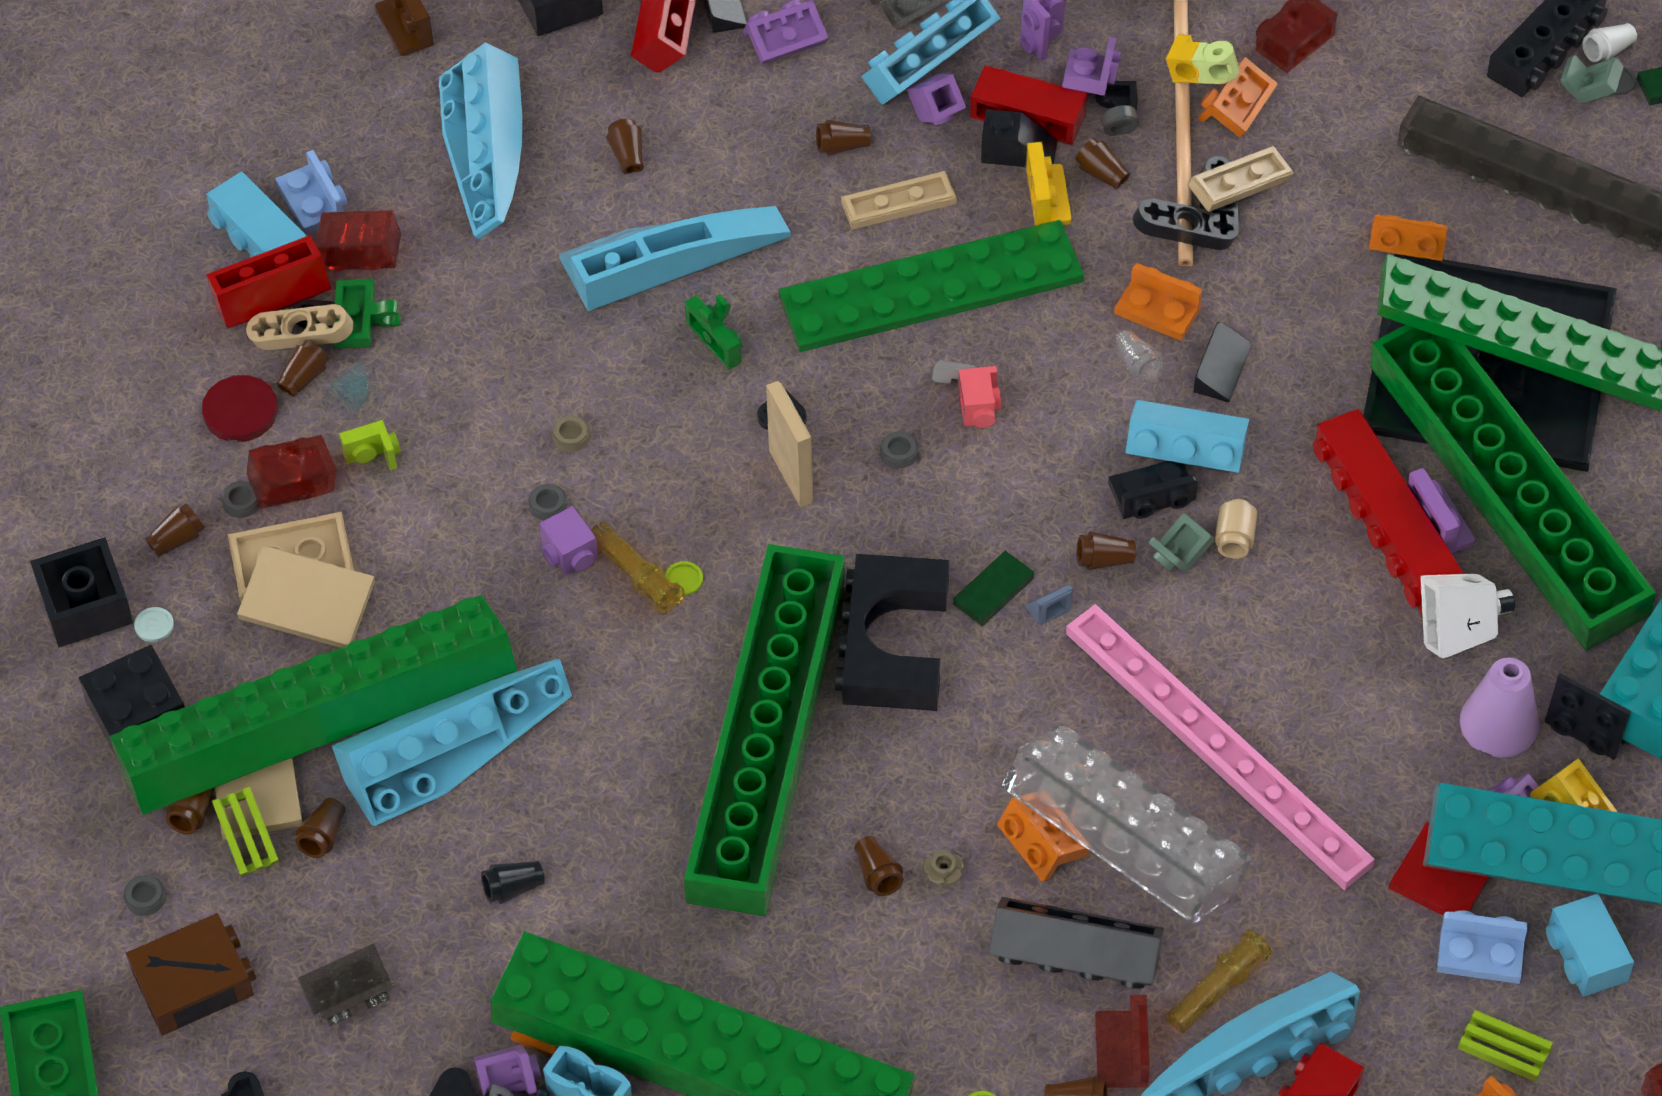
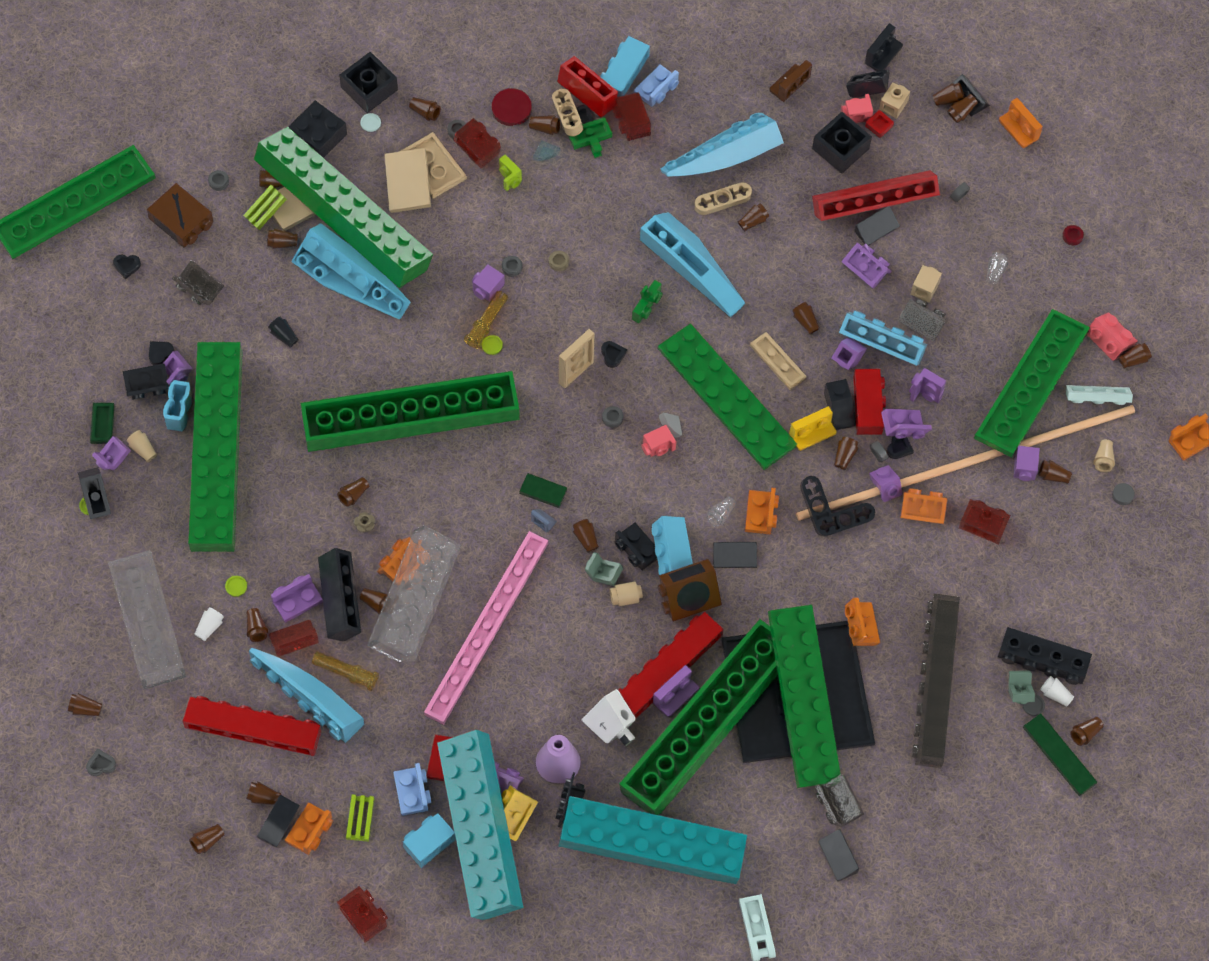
camera: 65 degrees right, 10 degrees up
(564, 165) = (739, 198): none -> tan beam
(869, 673) = (514, 432): black arch -> none
(1051, 1018) = (296, 598): none -> medium lavender bracket
(1104, 892) = (373, 599): none -> reddish brown cone
(1175, 128) = (887, 482): none -> medium lavender bracket
(1201, 61) = (931, 476): leg -> none
(1240, 178) = (863, 524): tan tile -> none
(1273, 429) = (689, 590): none -> reddish brown brick

